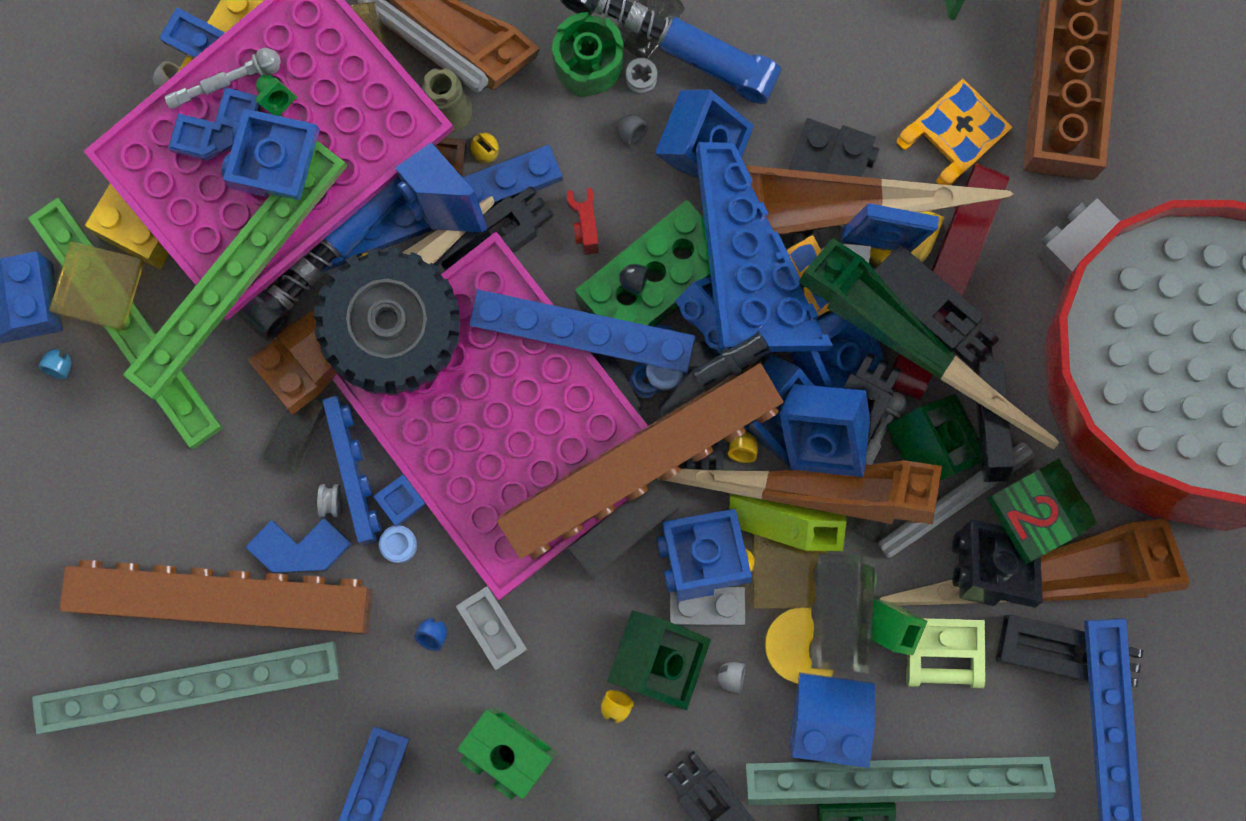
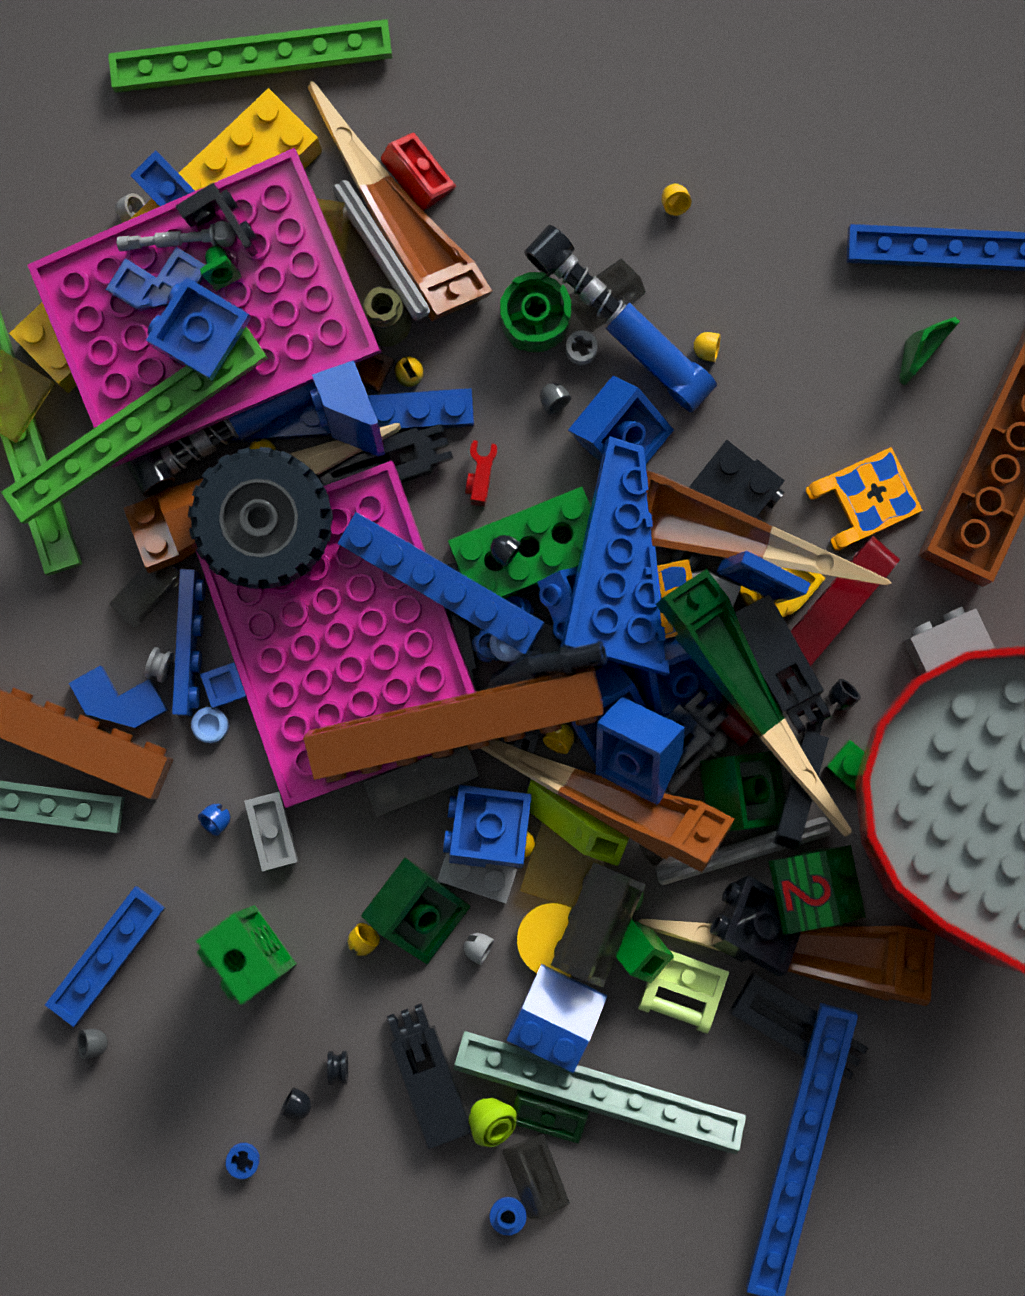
camera: 20 degrees right, 5 degrees up
(240, 41) = (201, 209): none -> black bracket
(759, 38) = (707, 346): none -> yellow hinge
(1000, 320) = (844, 694): none -> black hinge
(1028, 385) = (846, 764): none -> green plate

